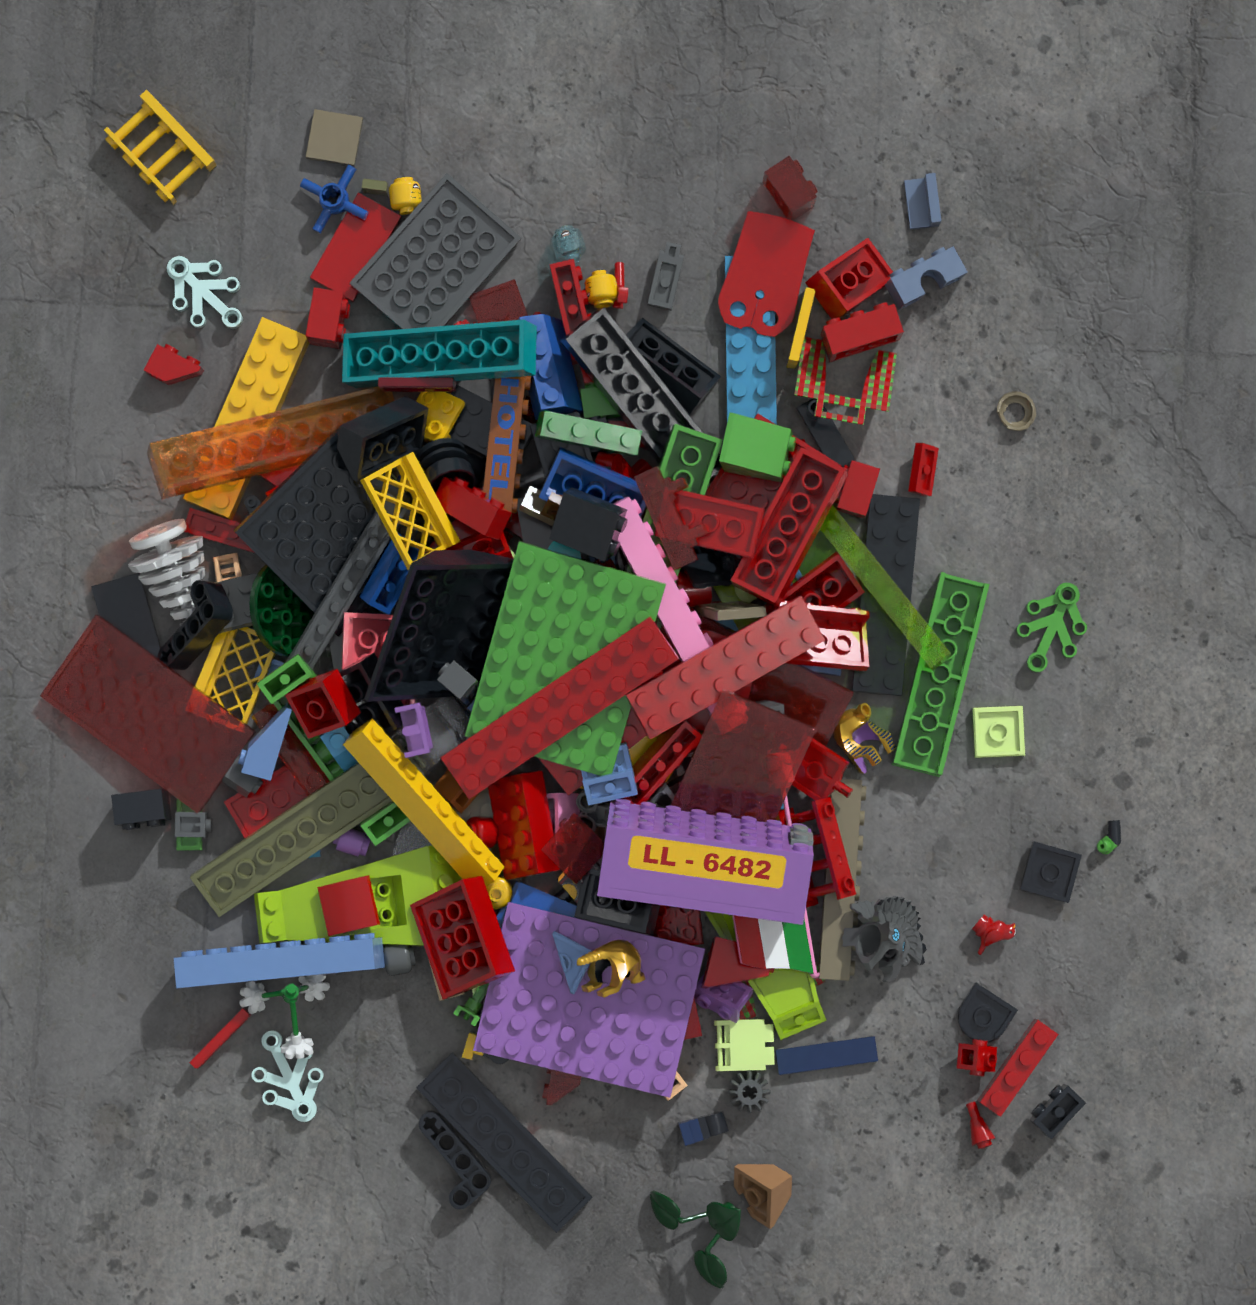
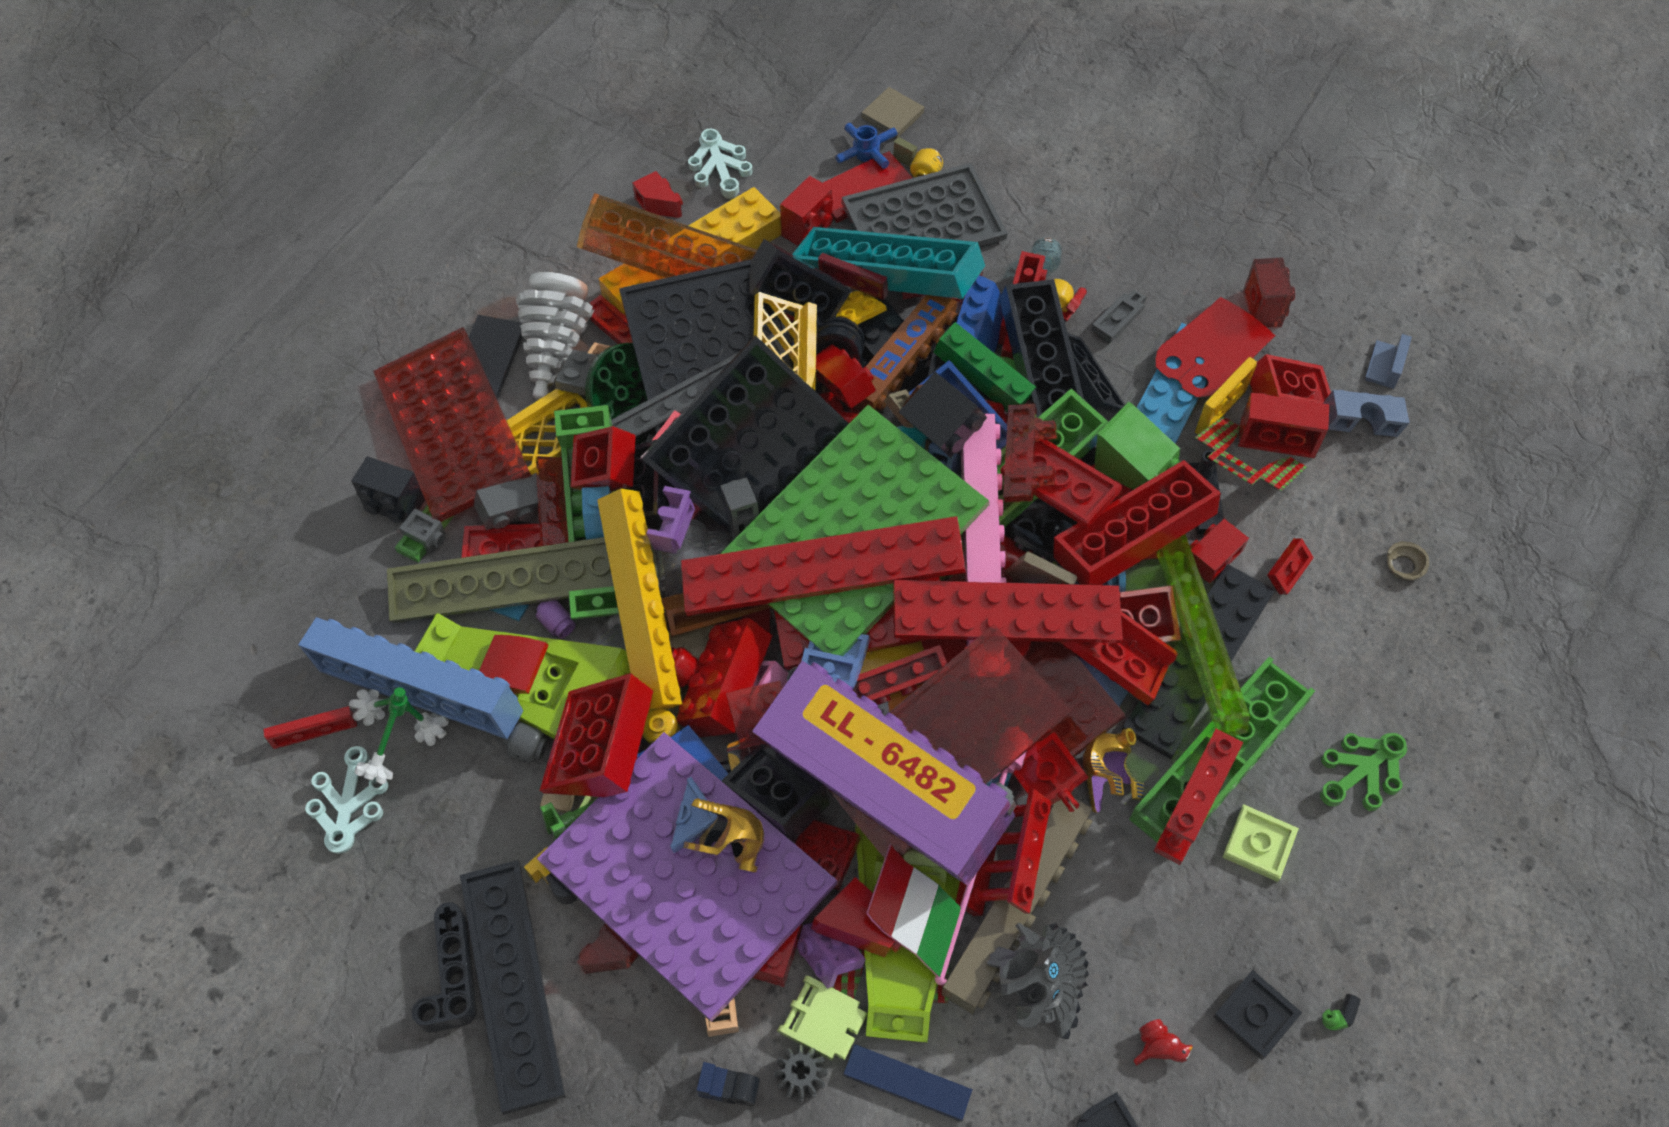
camera: 30 degrees right, 25 degrees down
(166, 125) = (766, 48): yellow fence -> none
(201, 627) = (540, 372): black beam -> none
(264, 748) = (528, 480): medium blue slope -> none
(939, 739) = (1198, 797): none -> red fence

